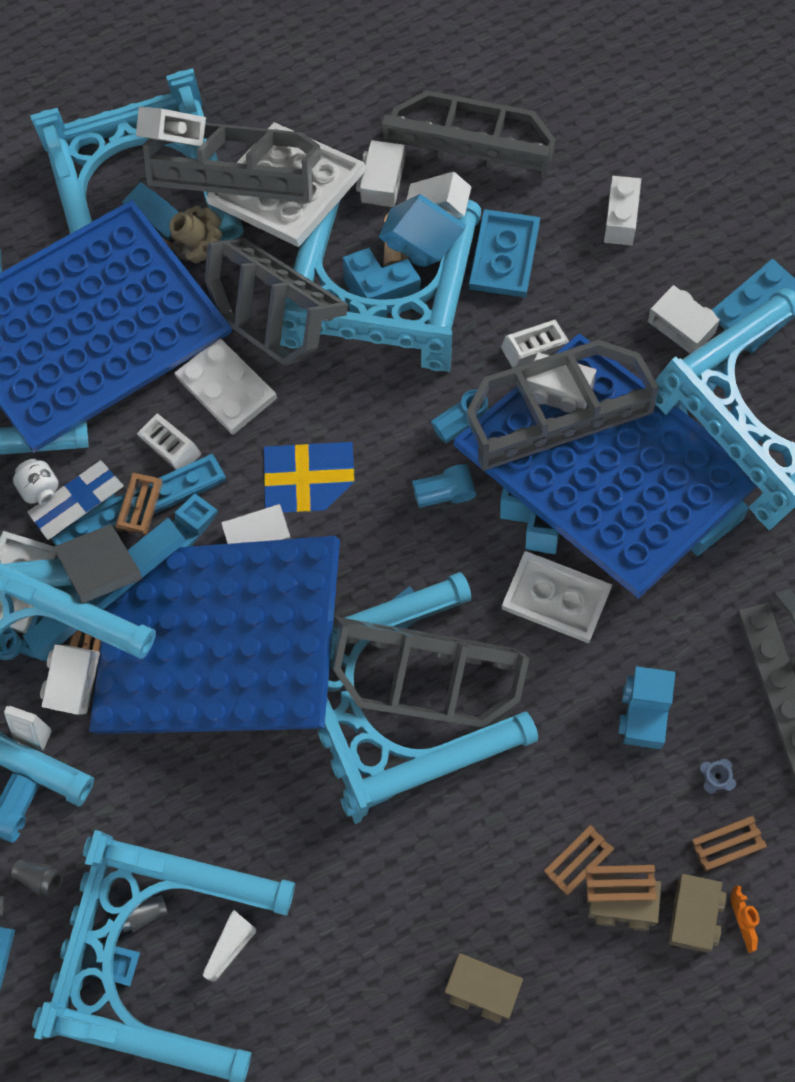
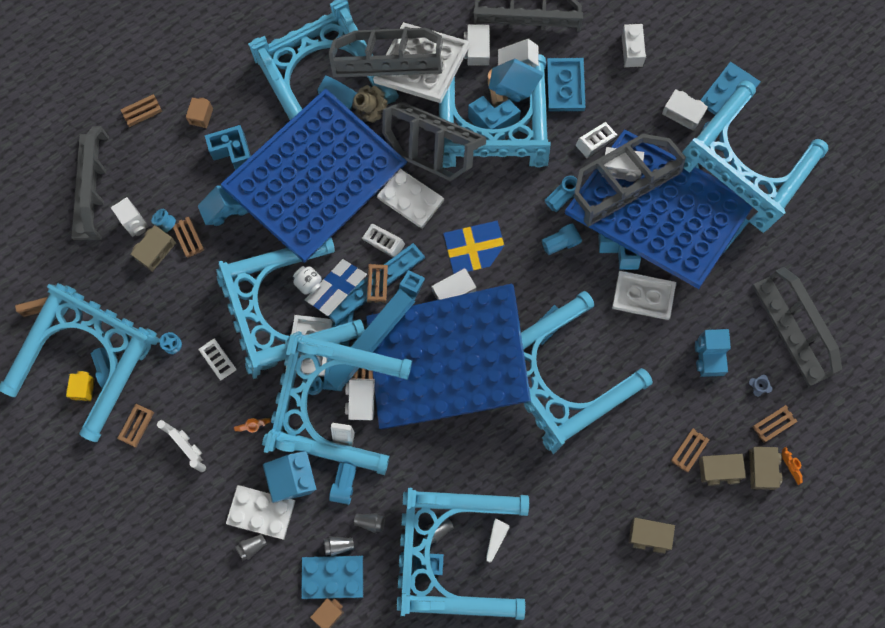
camera: 15 degrees left, 5 degrees up
(97, 563) = (364, 325): dark grey tile -> none
(170, 126) = (344, 38): white brick -> none
(442, 647) = (585, 338): dark grey plate -> none
(621, 897) = (736, 455): medium nougat tile -> none

